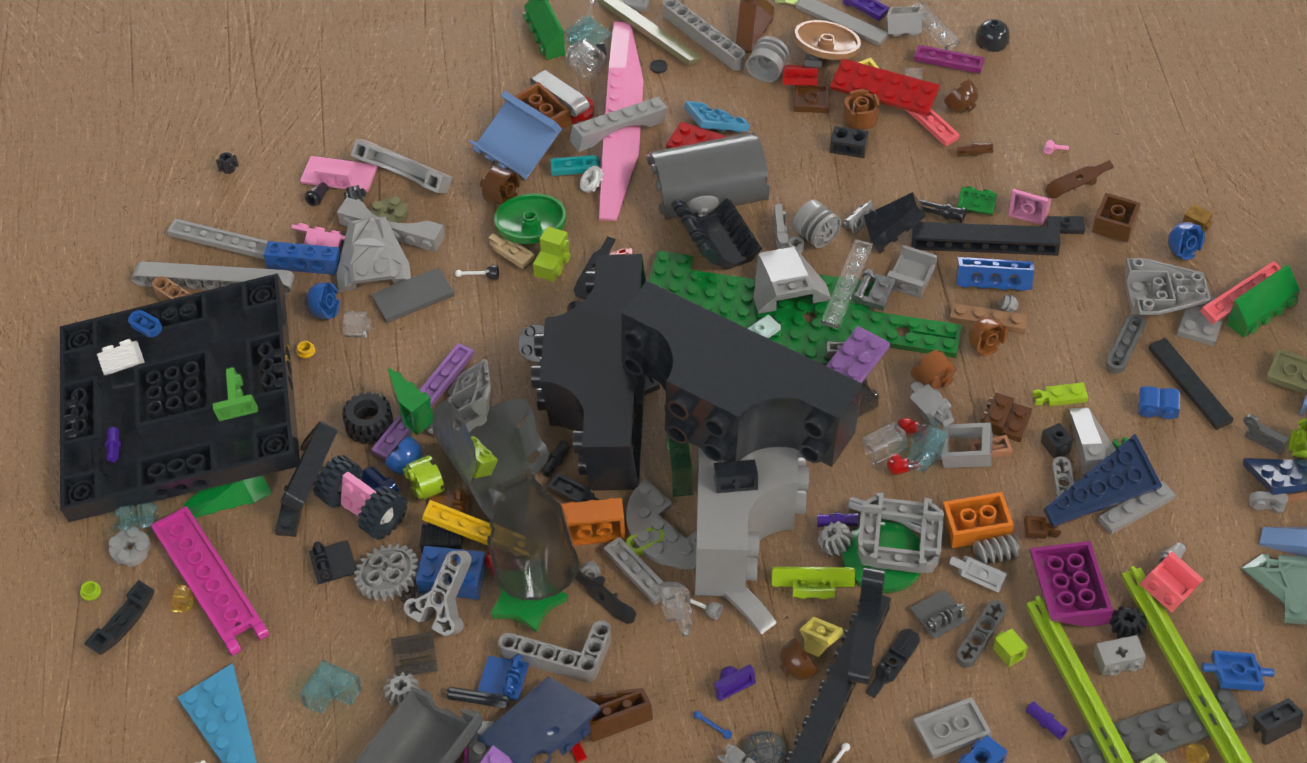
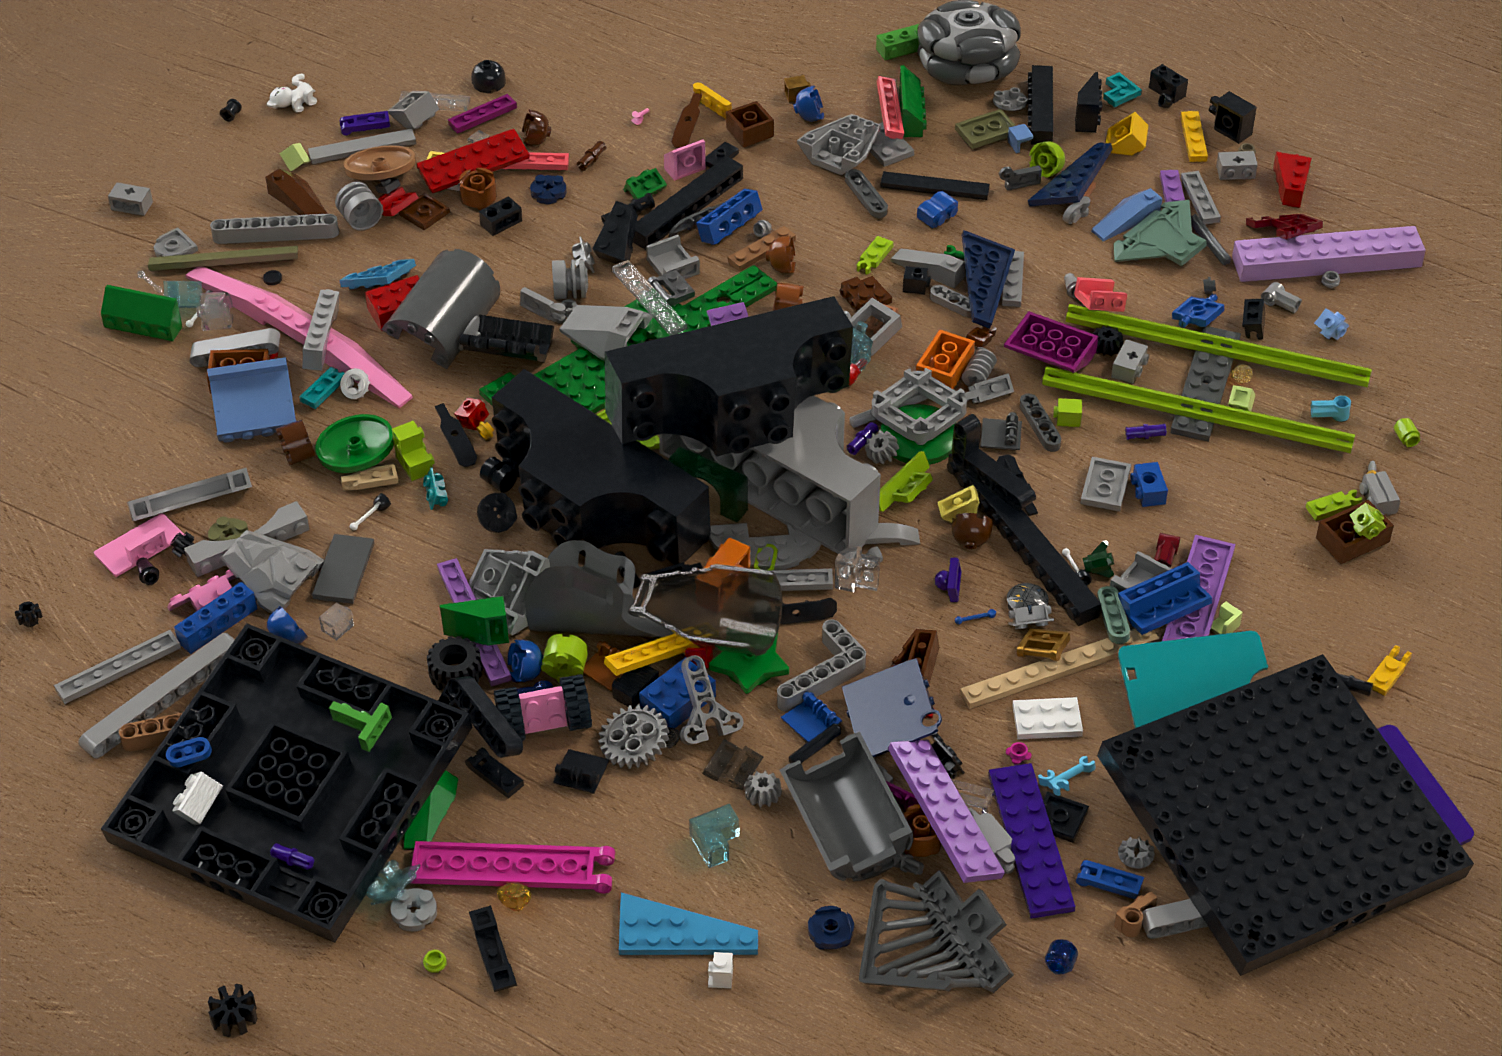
camera: 55 degrees left, 5 degrees down
(538, 288) = (435, 489): none -> teal hinge
(736, 476) = (808, 438): black hinge -> none
(911, 141) = (554, 183): none -> dark blue plate
(961, 252) = (688, 222): none -> dark grey piece
(1119, 175) = (712, 99): none -> yellow plate
(1283, 660) = (1209, 286): none -> dark grey plate

